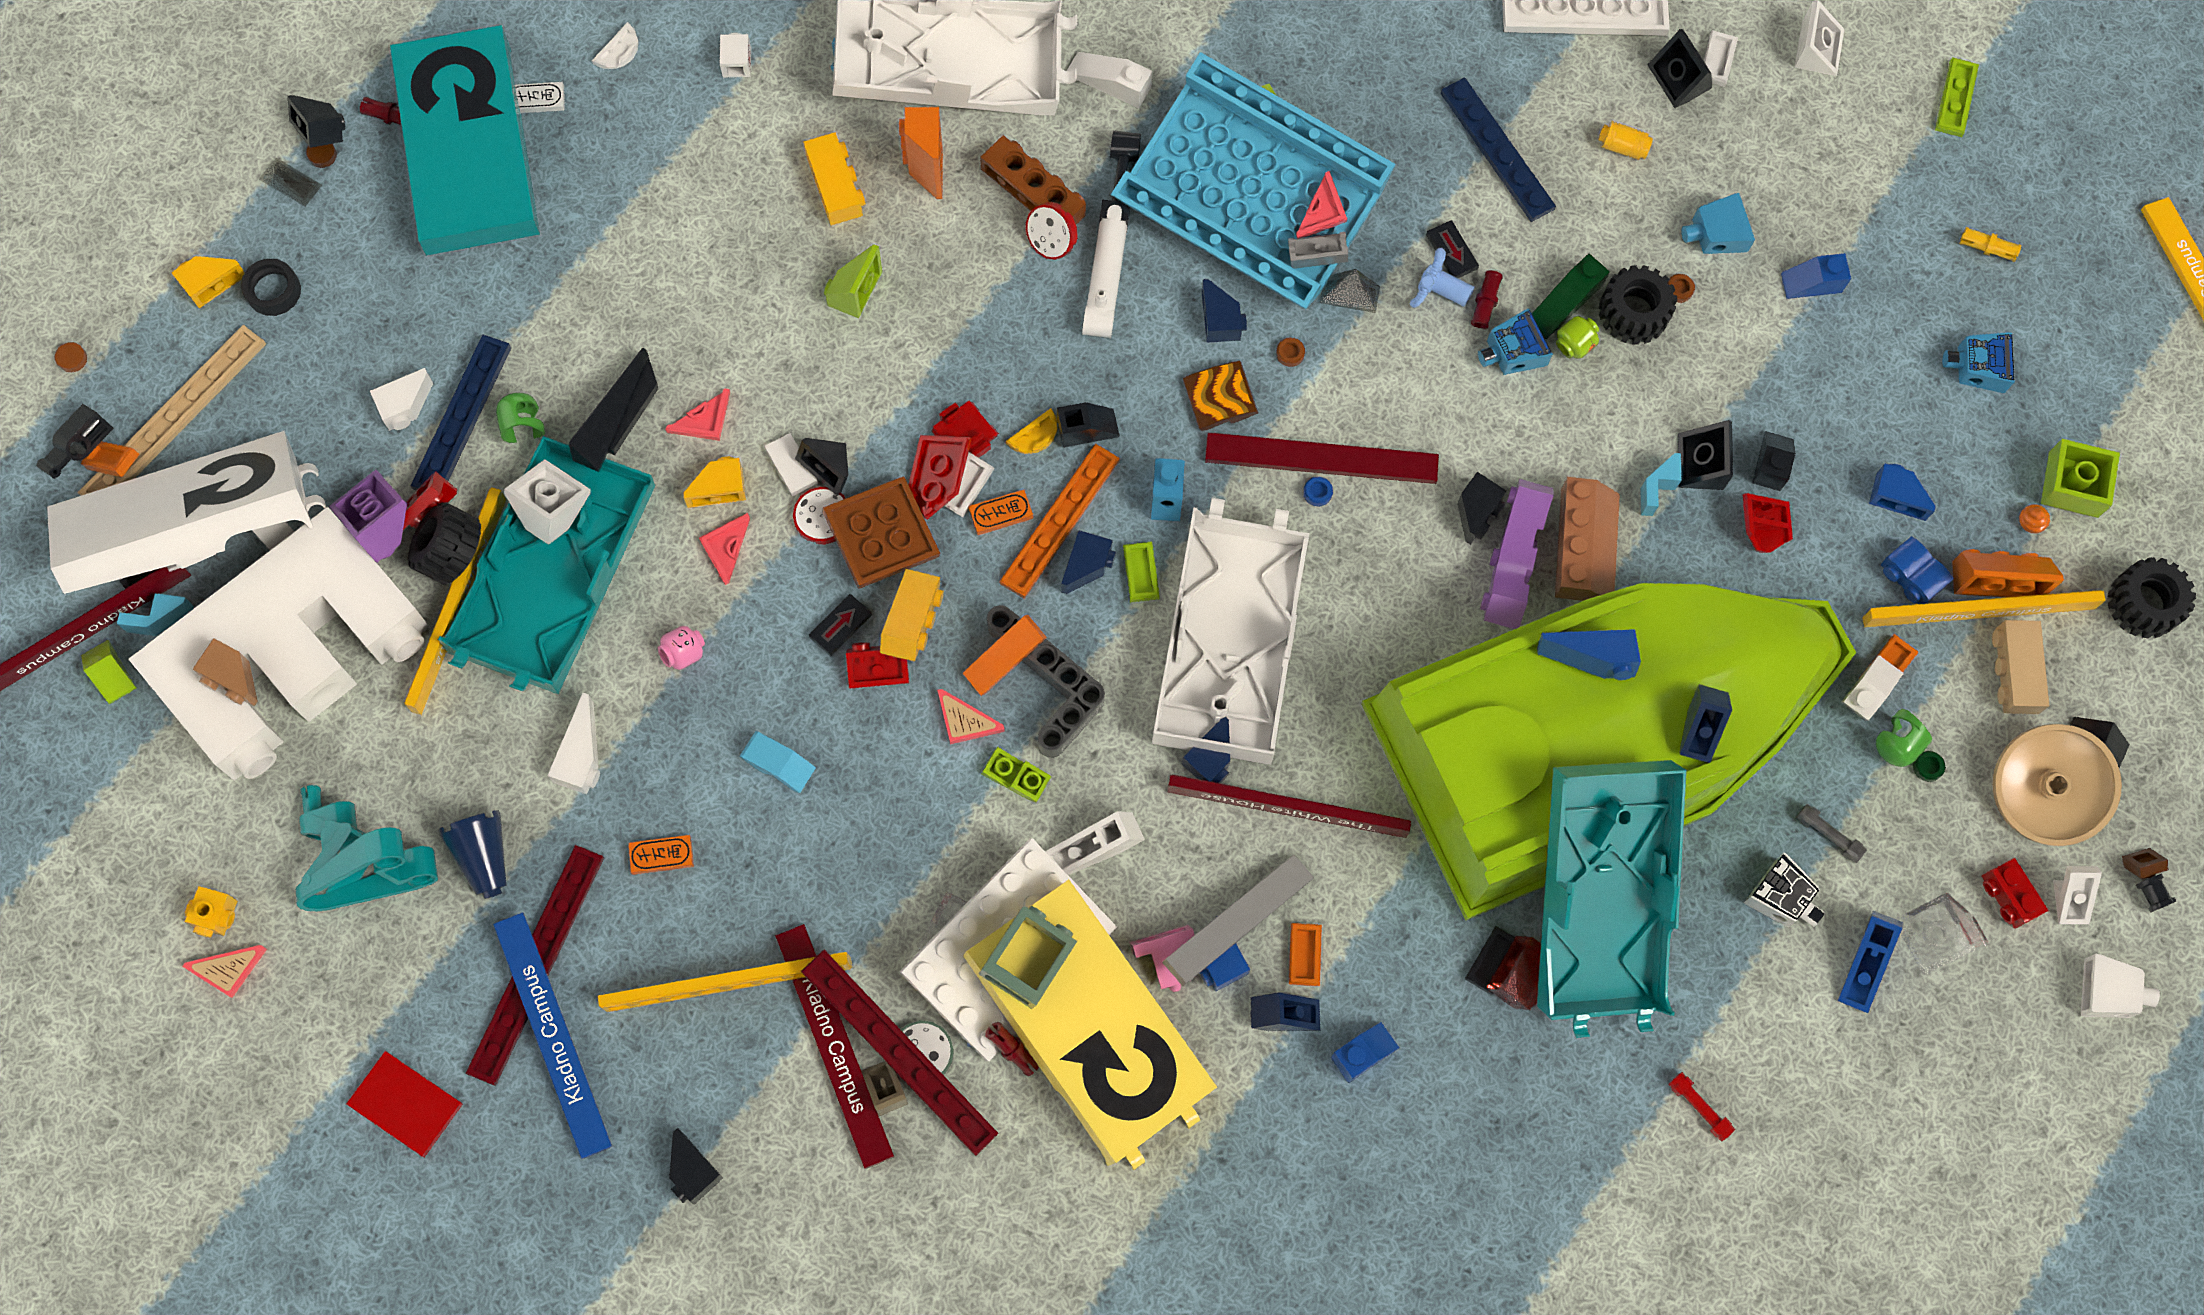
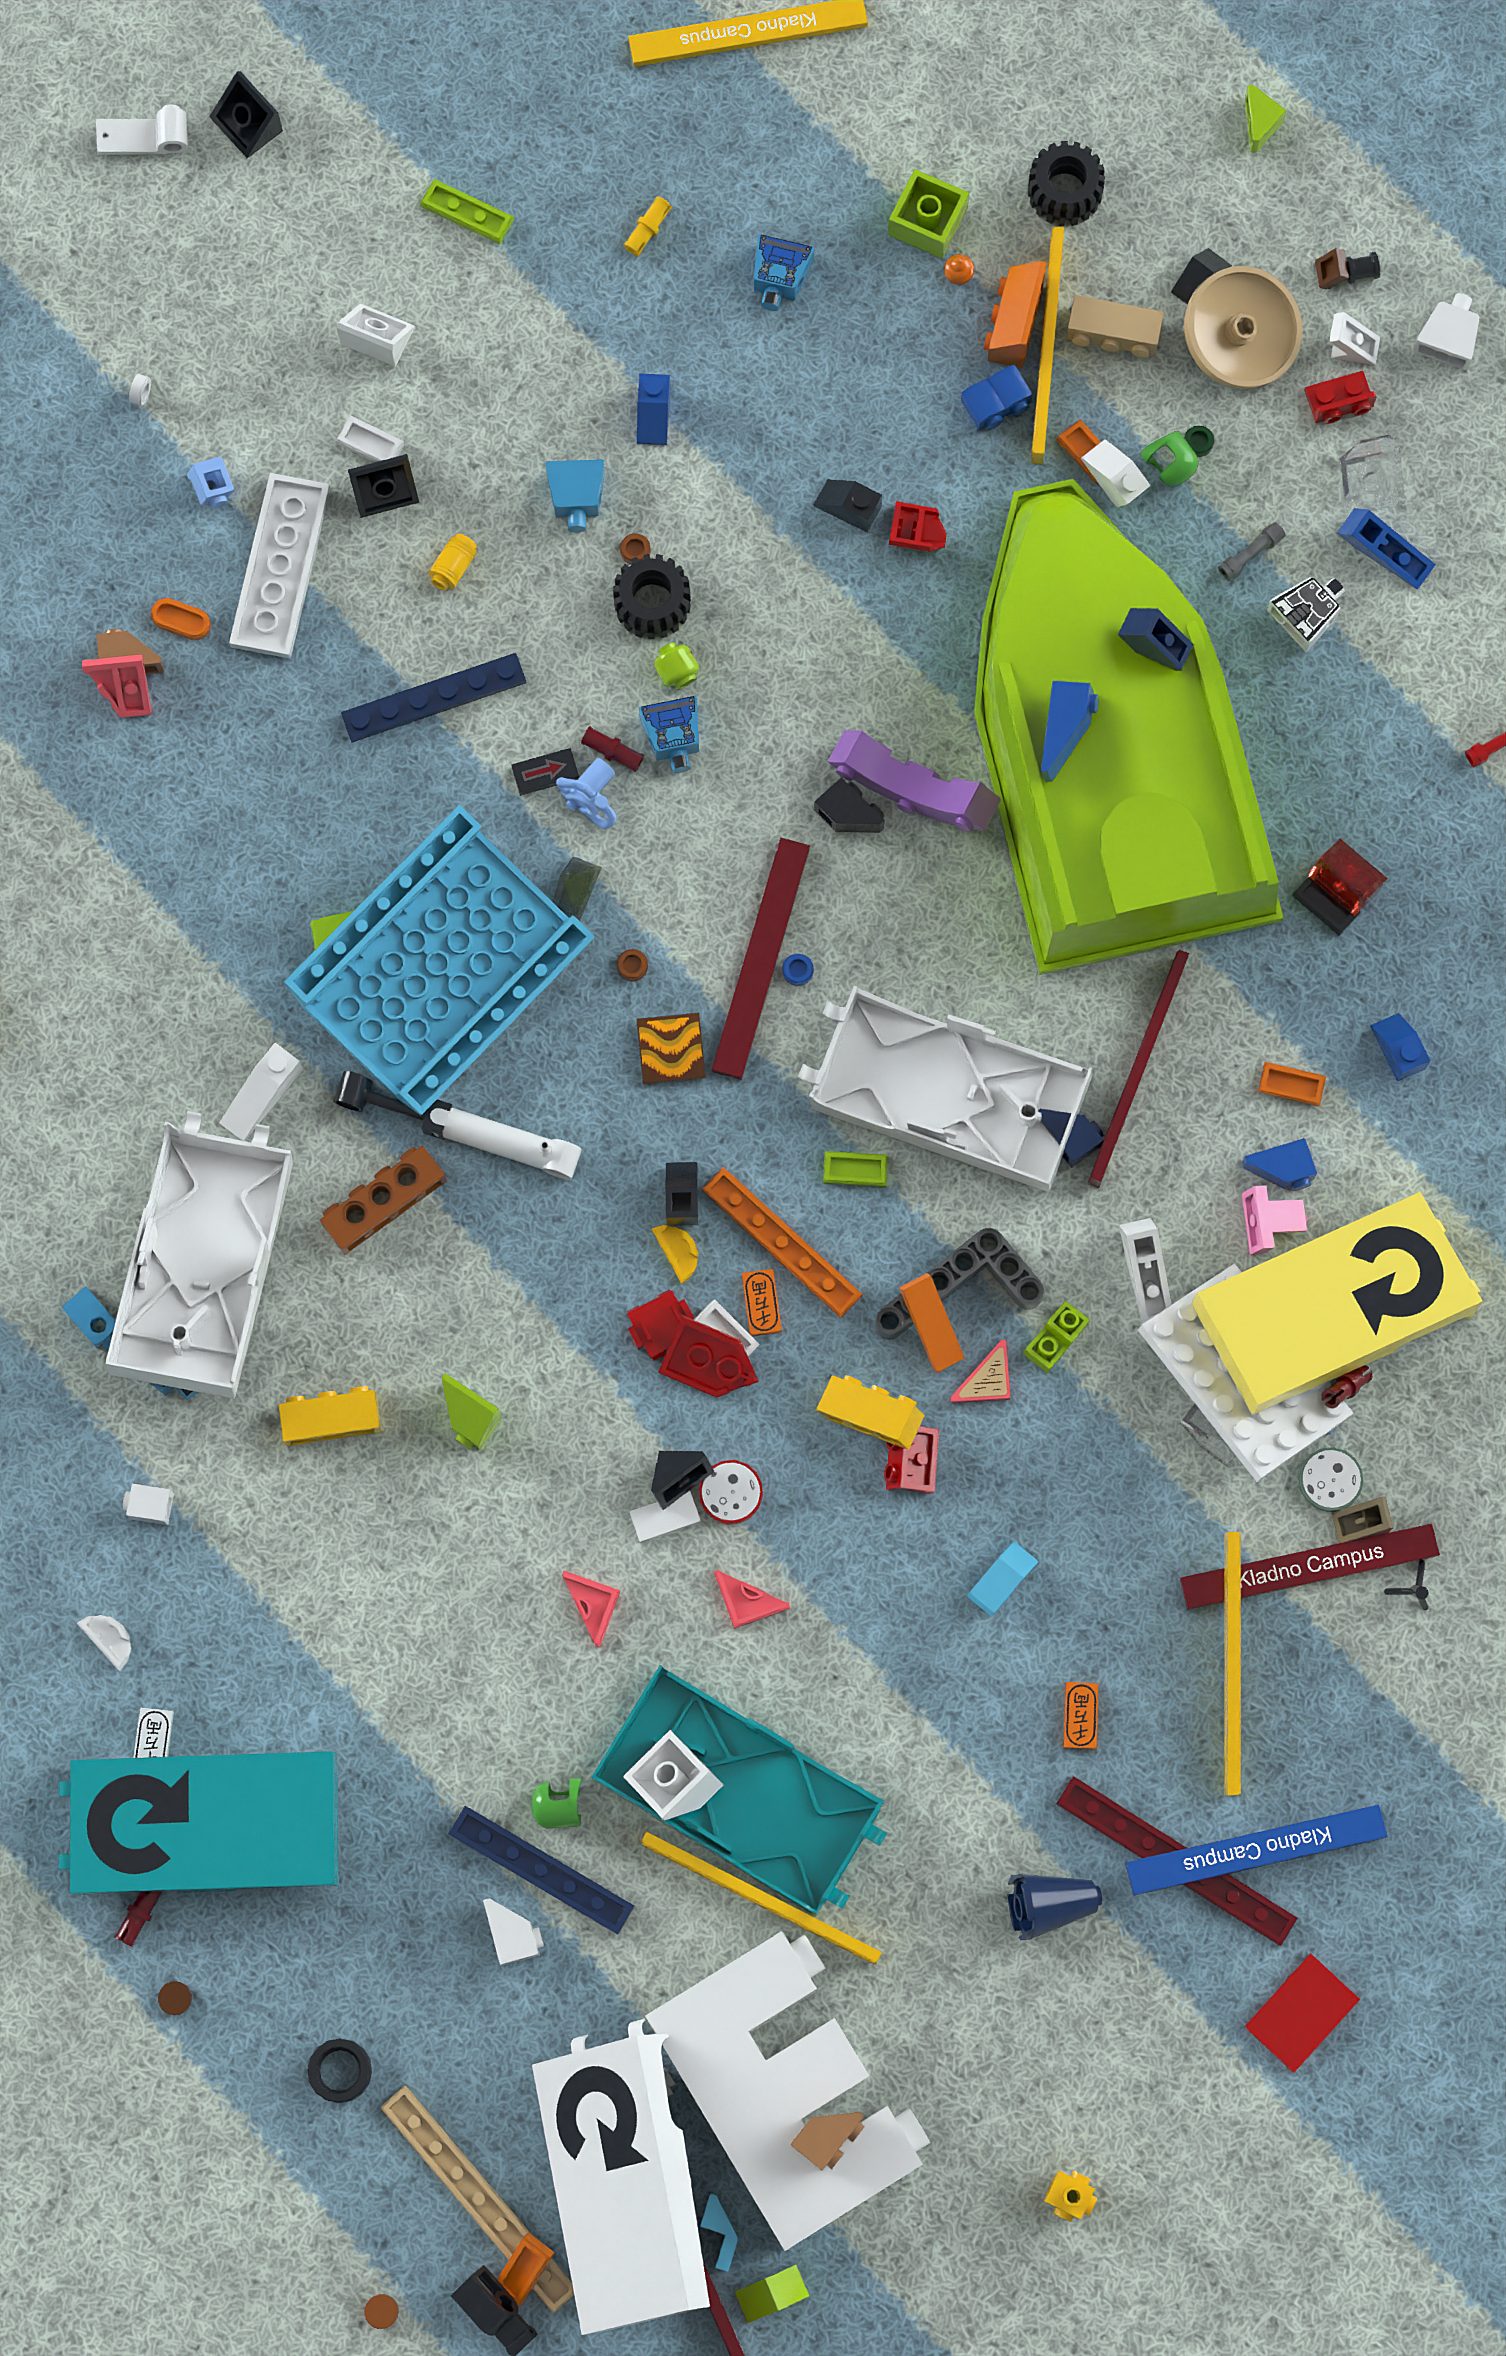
camera: 75 degrees left, 5 degrees up
(207, 277) = (314, 2144): yellow slope -> none
(228, 969) = (1130, 2187): tile -> none
(290, 182) = (204, 2038): clear smoke slope -> none
(315, 121) = (138, 1998): black slope -> none
(340, 873) = (1050, 2046): teal connector -> none
(373, 515) = (656, 1969): medium lavender slope -> none
(428, 495) = (647, 1919): red bracket -> none
(444, 543) = (702, 1897): black tyre -> none
(577, 756) = (959, 1786): white slope -> none
(615, 414) = (578, 1693): black wedge -> none
(681, 647) = (858, 1662): bright pink head -> none
(690, 1170) = (1417, 1726): black slope -> none
(717, 484) = (676, 1595): yellow slope -> none
(819, 1146) = (1416, 1590): none -> black plant
(840, 625) = (859, 1492): black tile -> none
(881, 532) = (766, 1430): dark orange plate -> none
(899, 1052) = (1333, 1498): dark red tile -> none
(923, 147) = (329, 1305): orange slope -> none
(1009, 982) = (1260, 1365): sand green window -> none
(1051, 230) = (447, 1188): white tile -> none
(1087, 561) = (836, 1221): dark blue slope -> none
(1167, 486) = (772, 1121): dark azure torso -> none
(1221, 314) = (577, 1028): dark blue slope -> none
(1237, 920) = (1253, 1139): light grey tile -> none
(1284, 1013) = (1350, 1115): dark blue slope -> none
(1318, 250) = (529, 909): light grey hinge -> none
(1324, 210) = (485, 892): coral tile -> none
(1570, 294) = (625, 663): dark green slope -> none
(1586, 539) = (905, 711): nougat slope -> none
(1611, 891) = (1301, 769): teal piece -> none
(1665, 478) = (847, 614): medium azure slope -> none
(1706, 456) = (835, 570): black slope -> none
(1901, 492) = (908, 390): blue slope -> none

